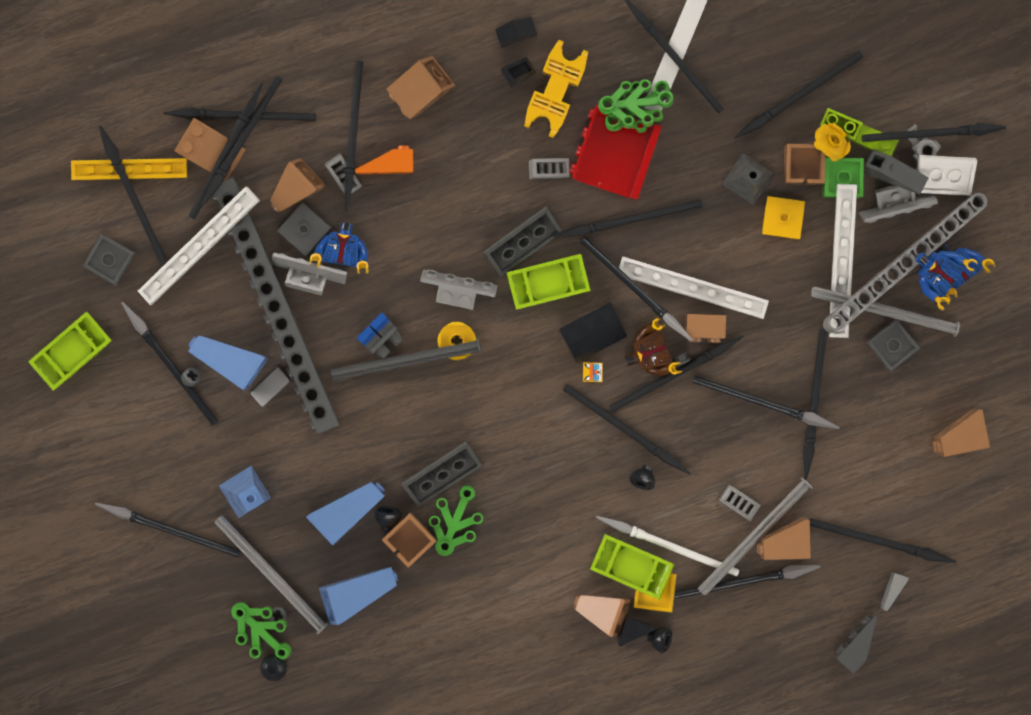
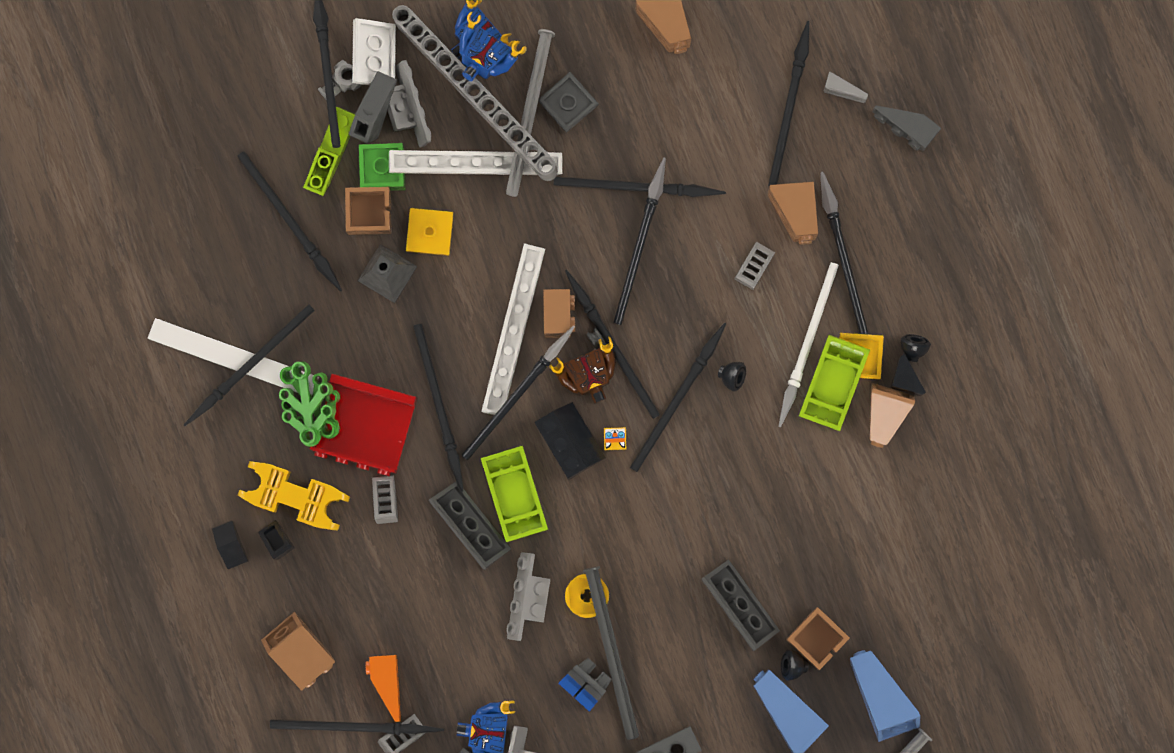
camera: 85 degrees left, 5 degrees down
(454, 524) = (797, 588): bright green plant -> none
(754, 537) = (792, 246): light grey axle -> none
(833, 149) = (350, 178): yellow plate -> none

